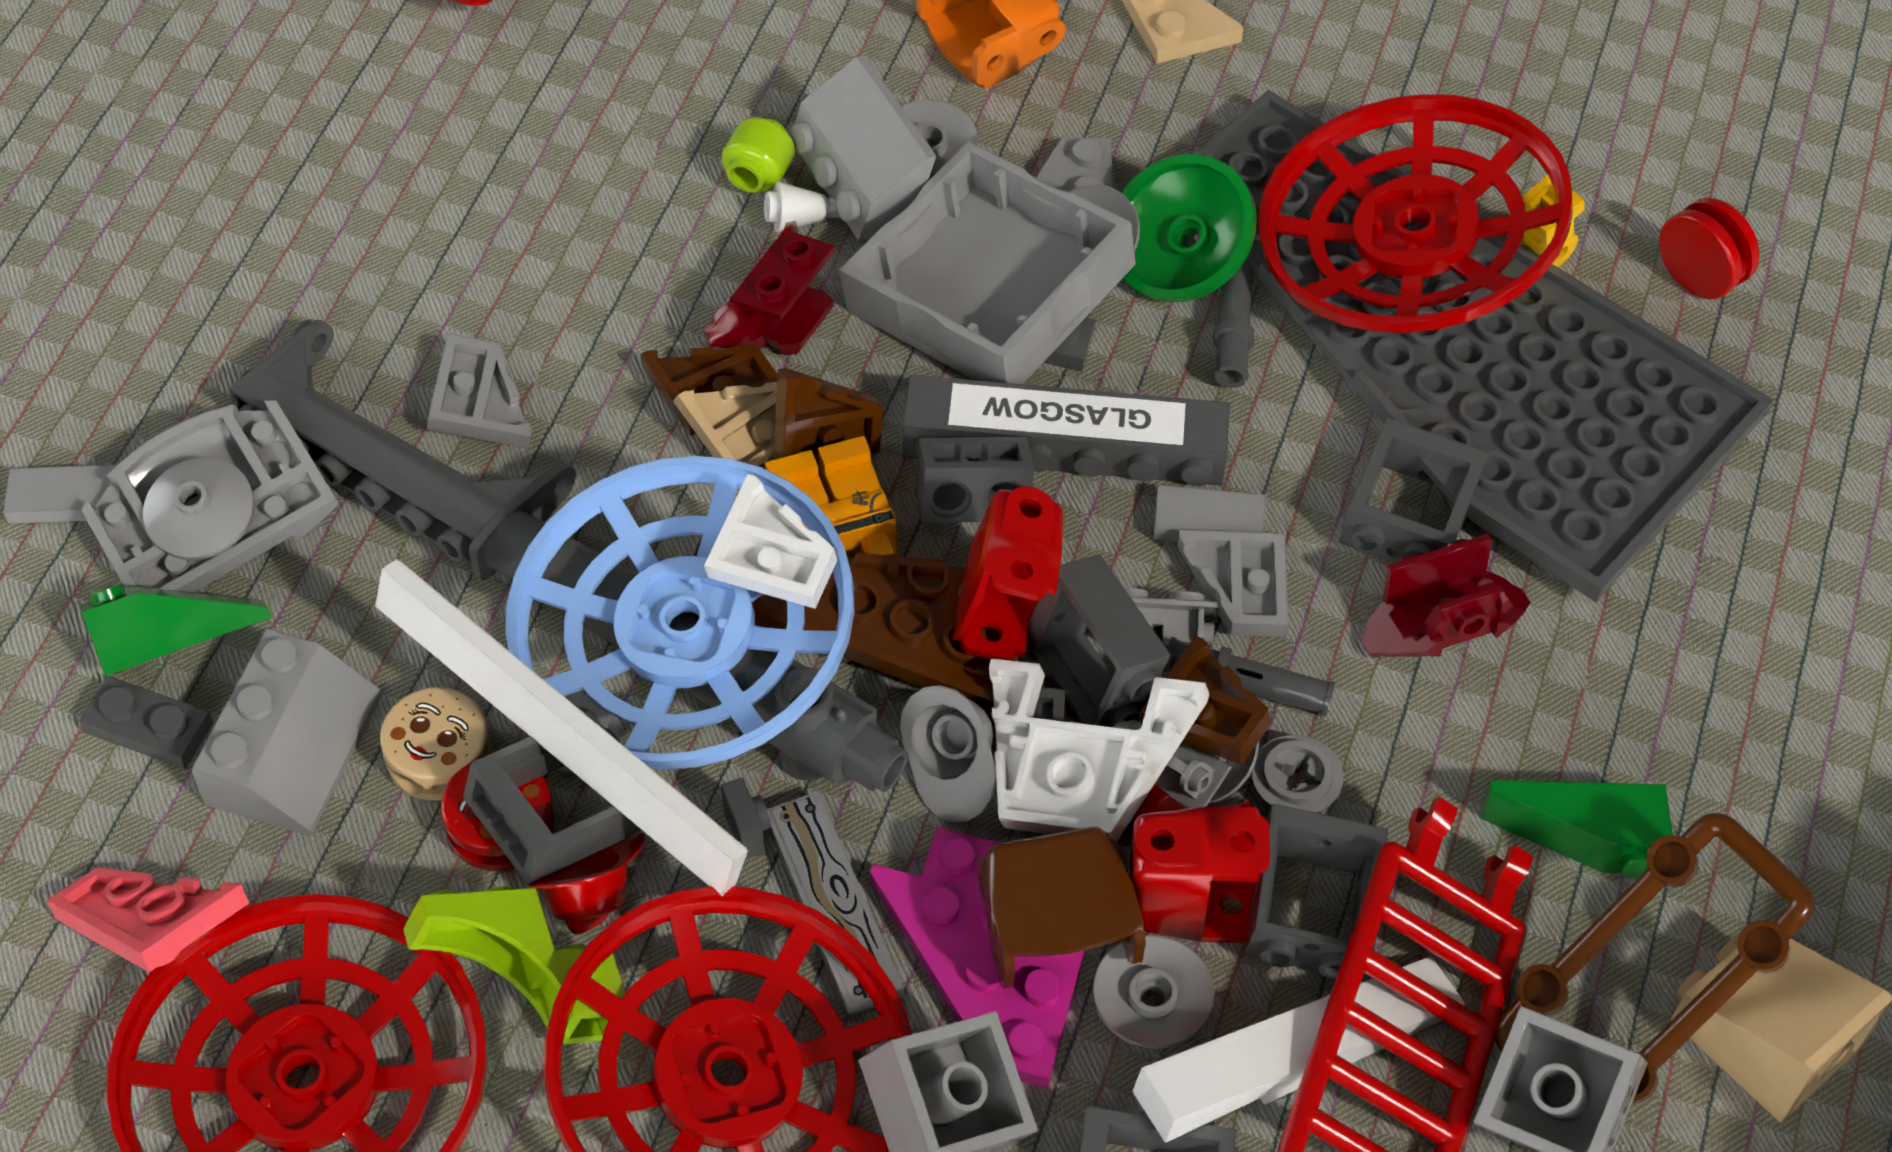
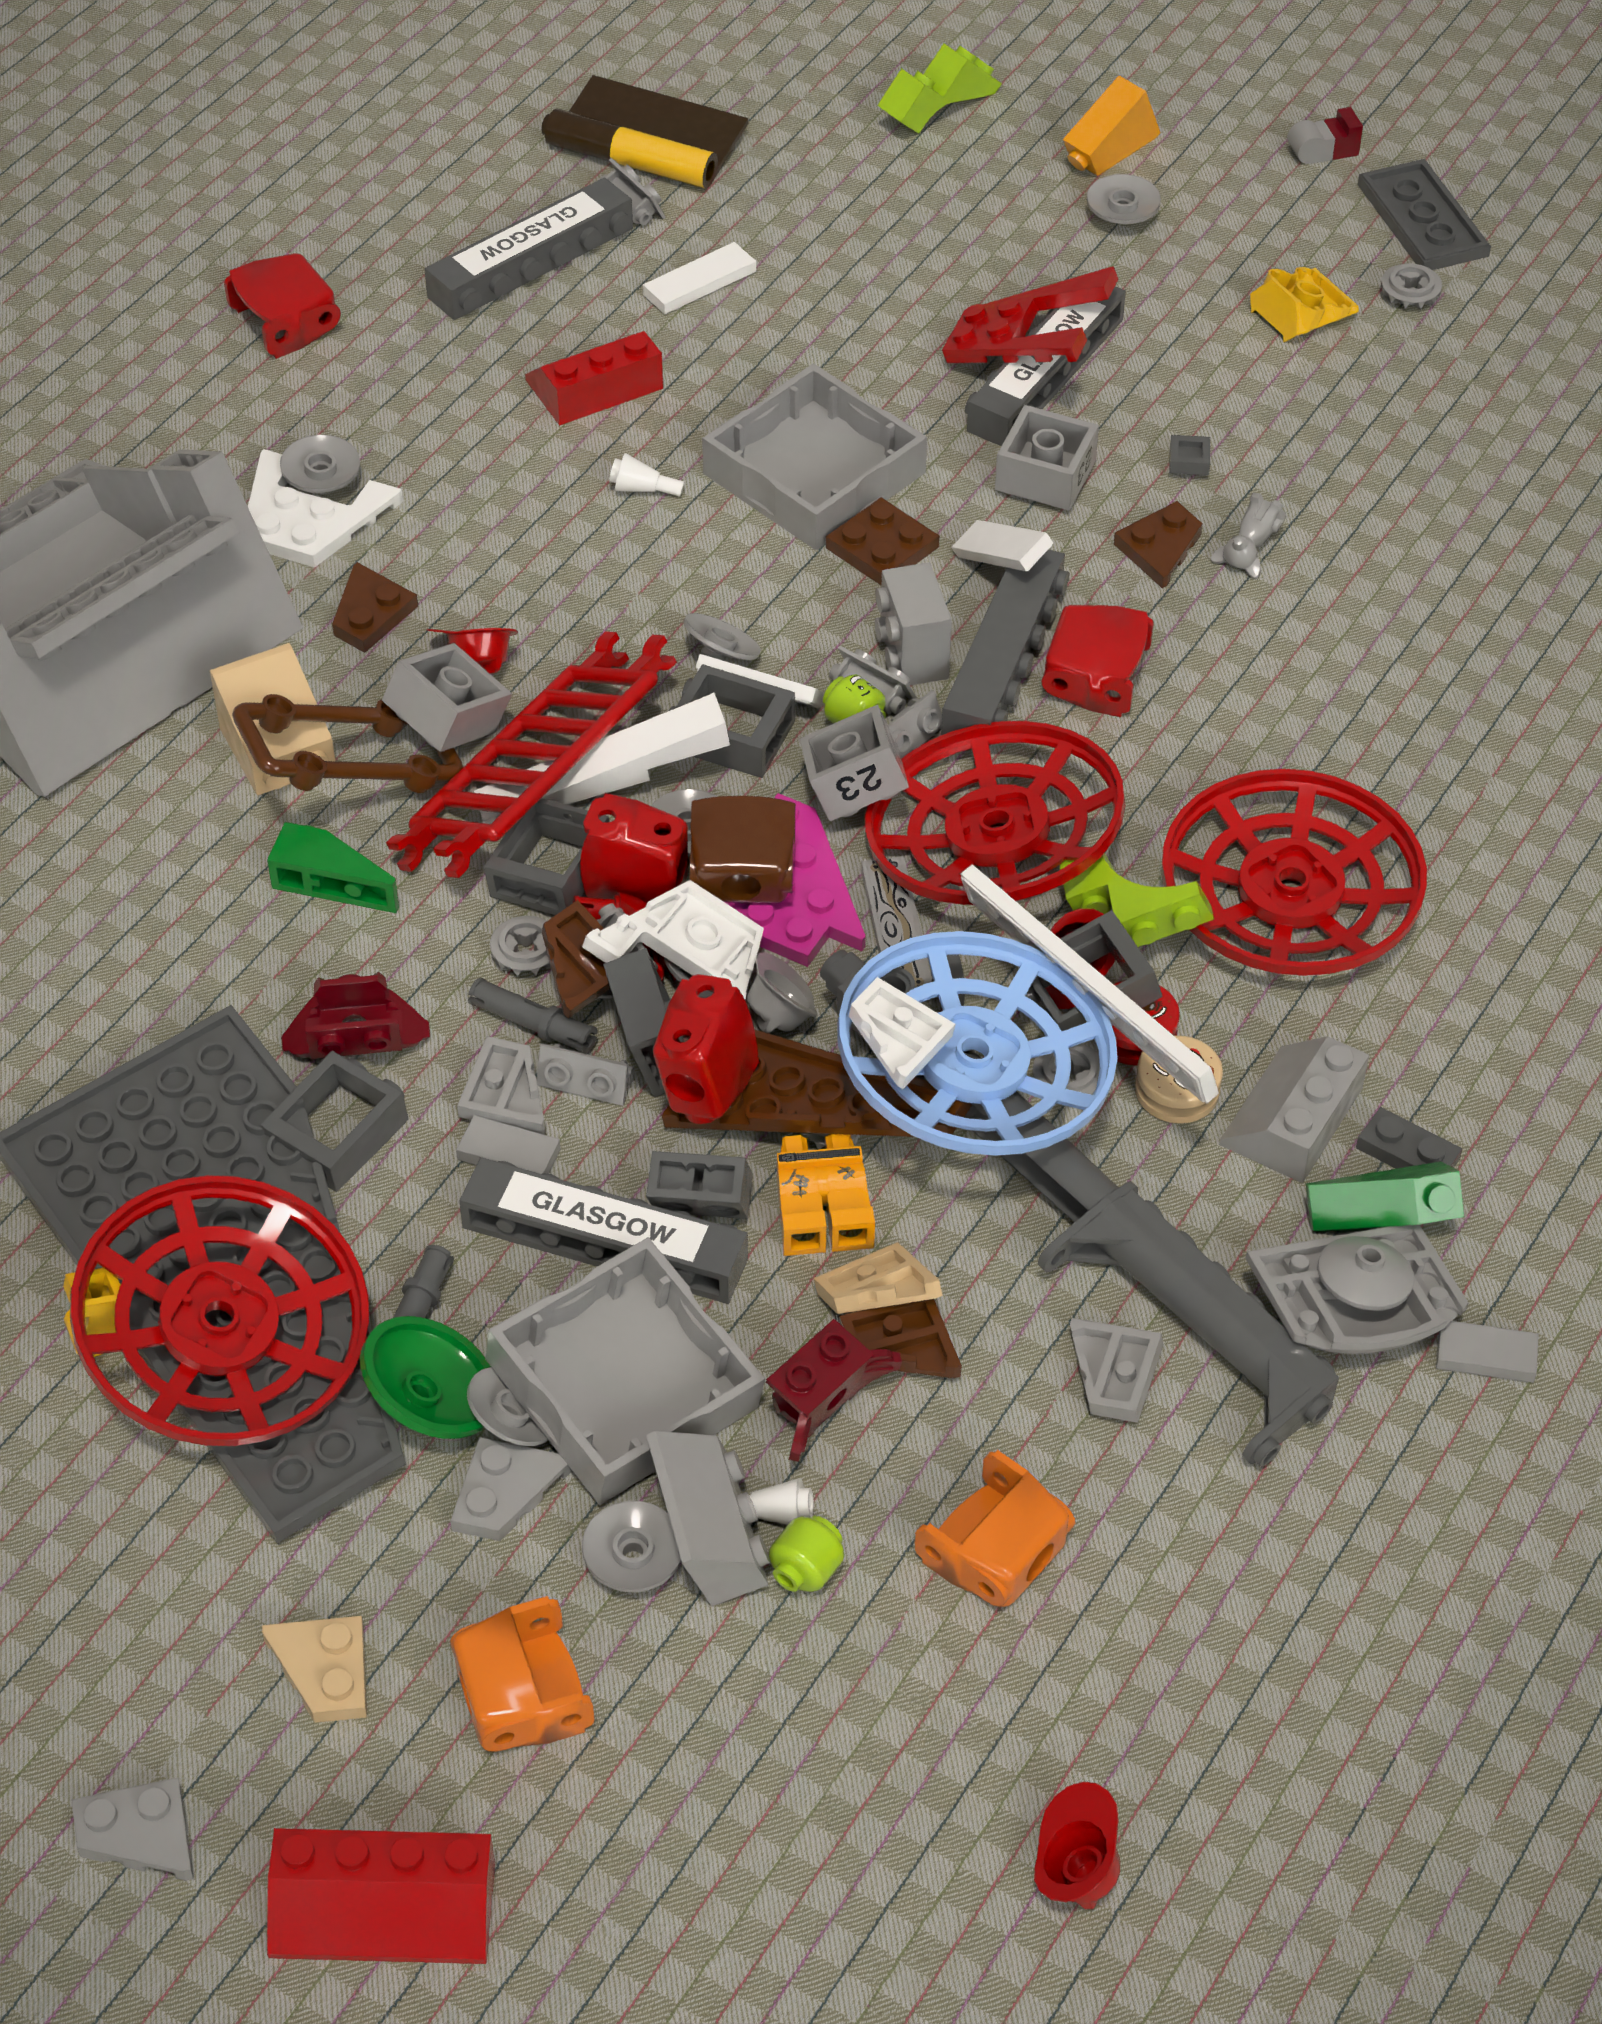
camera: 165 degrees left, 5 degrees down
(141, 917) = (1406, 976): coral wing -> none
(578, 204) = (998, 1534): none -> orange piece
(822, 413) = (833, 1248): reddish brown wing -> none

